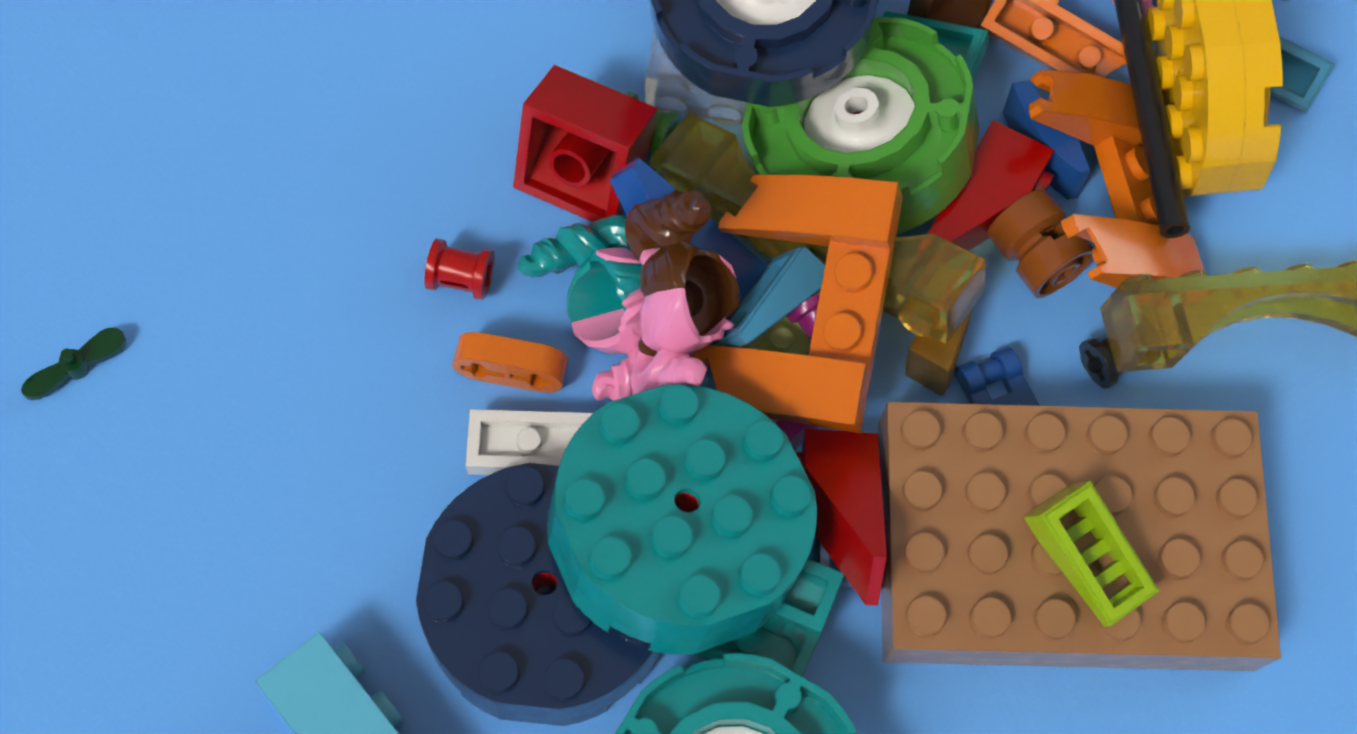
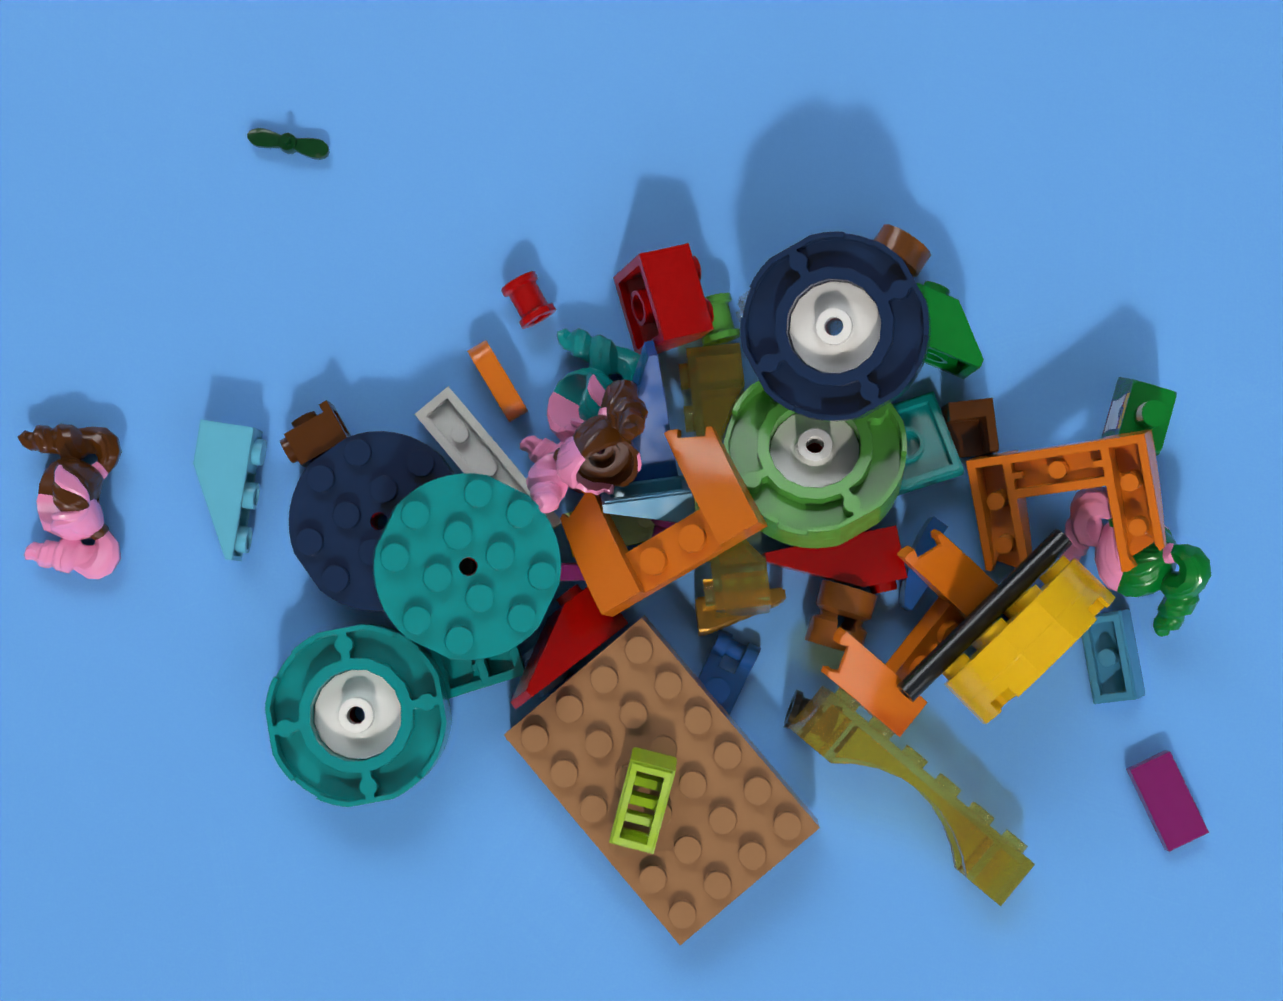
camera: 50 degrees right, 20 degrees up
(388, 585) = (314, 434): none -> reddish brown brick

